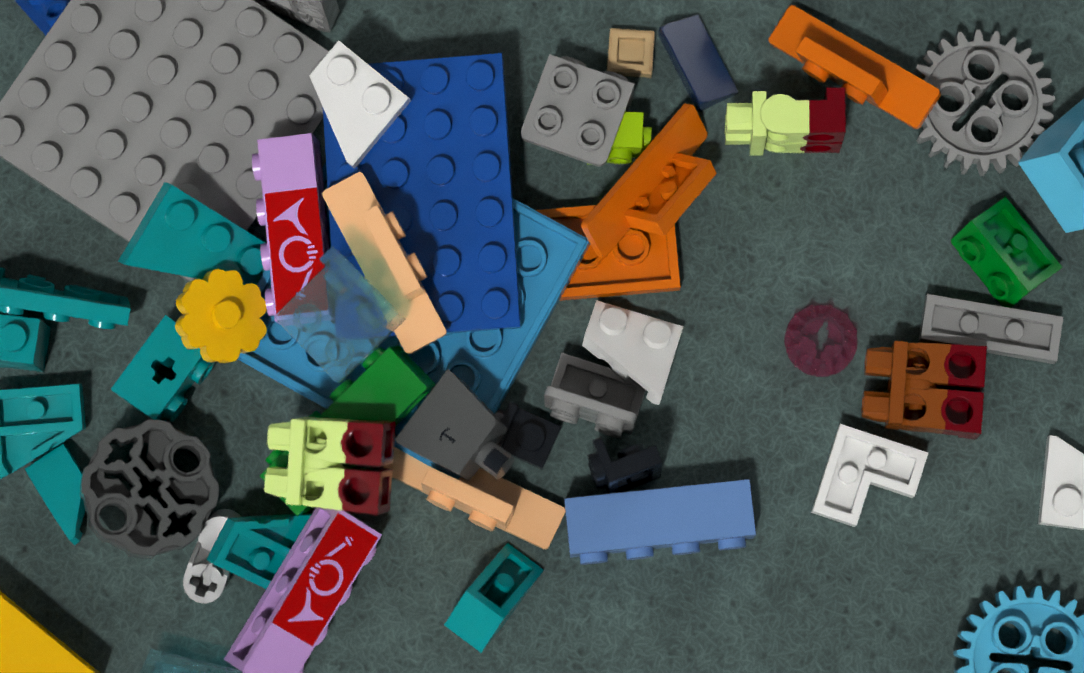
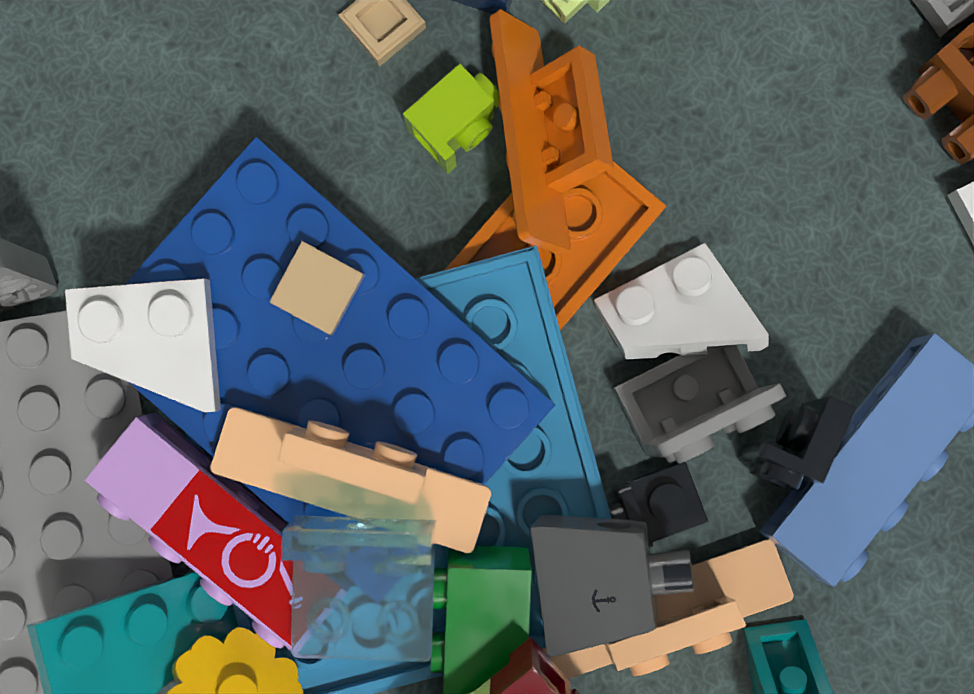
camera: 45 degrees left, 5 degrees up
(458, 154) = (317, 288): none -> tan tile
(577, 110) = (391, 125): light grey bracket -> none
(802, 350) = (844, 154): clear pink gear -> none

